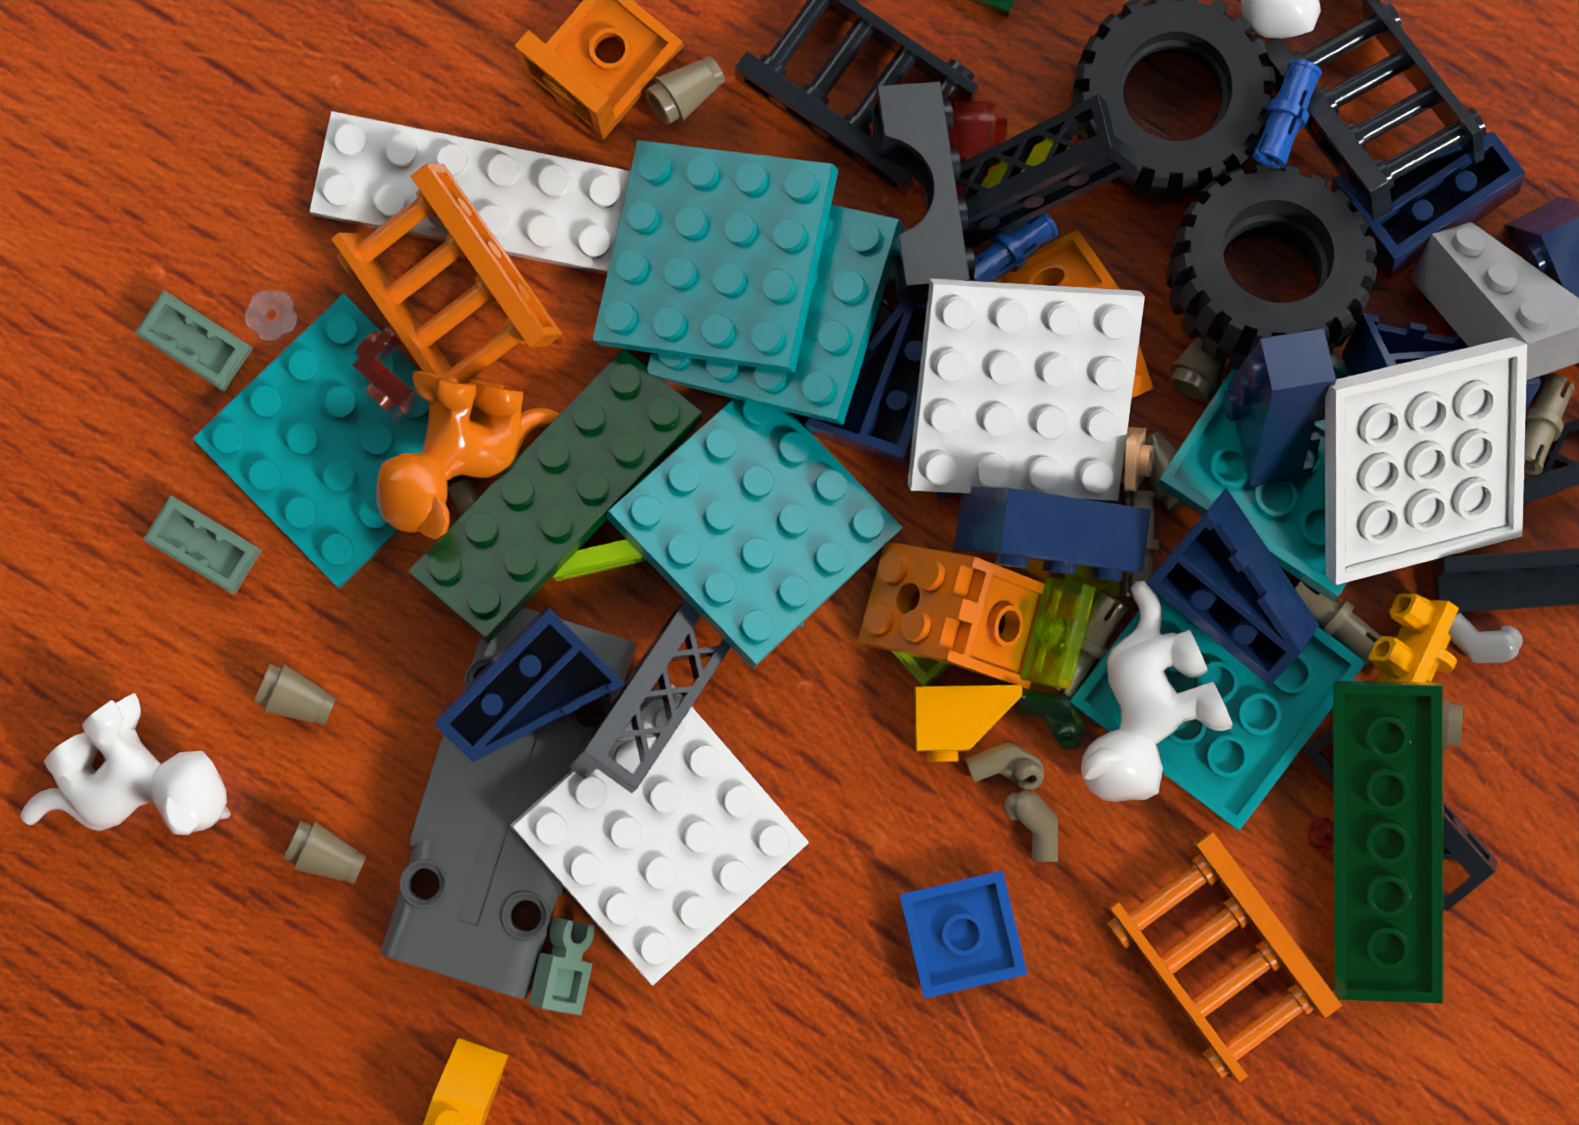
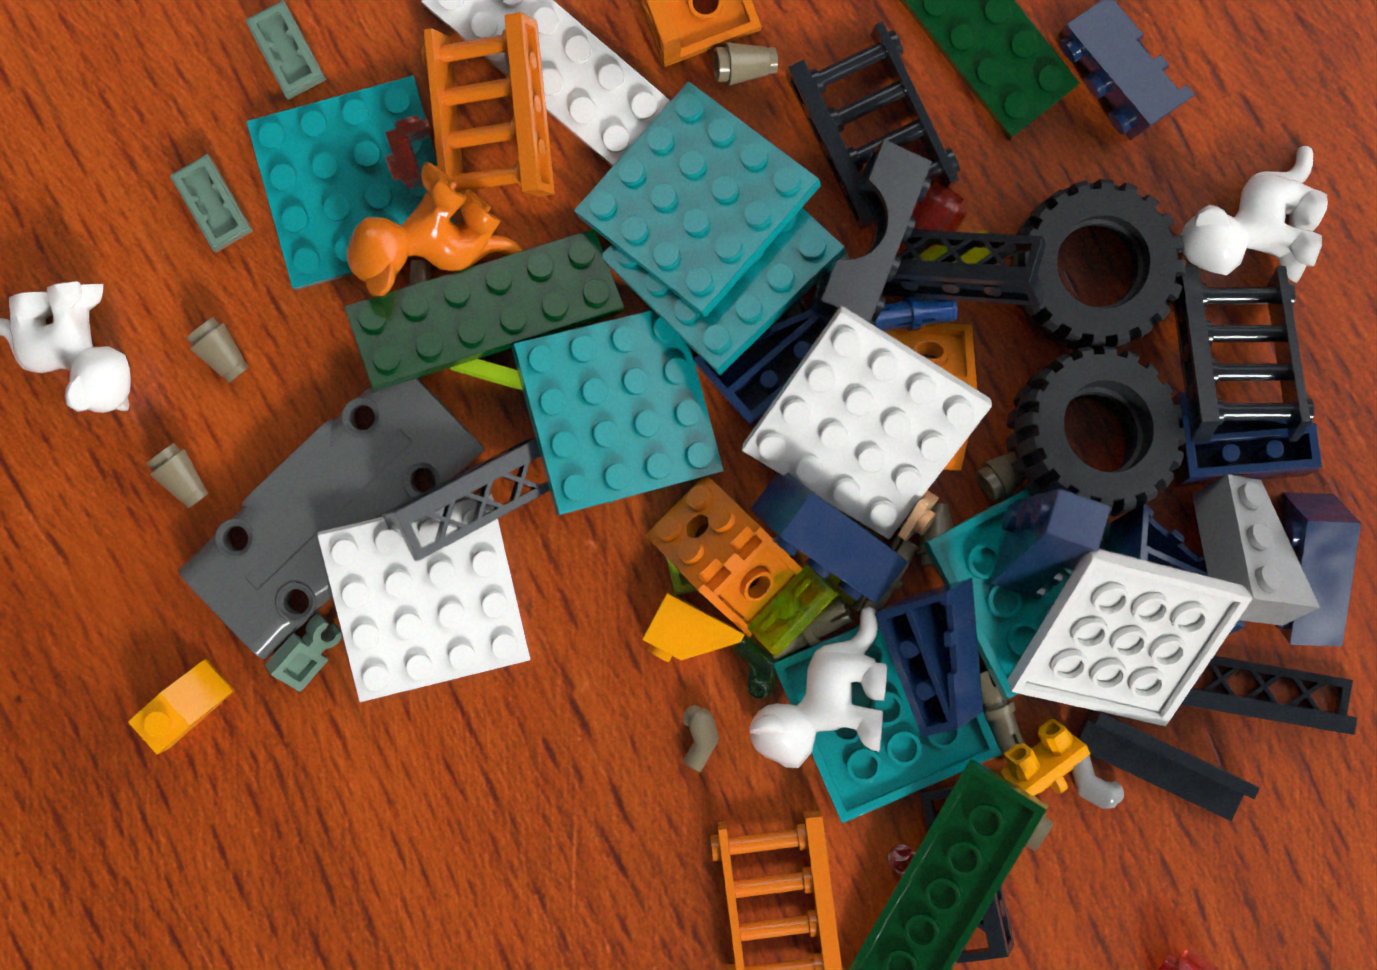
camera: 25 degrees right, 5 degrees up
(257, 314) = (347, 51): clear plate -> none
(526, 686) = (383, 439): dark blue wedge -> none
(963, 934) = (603, 786): blue plate -> none
(1010, 762) = (707, 682): dark tan arm -> none
(1287, 113) = (1173, 327): blue pin -> none
(1545, 421) = (1231, 653): dark tan pin -> none

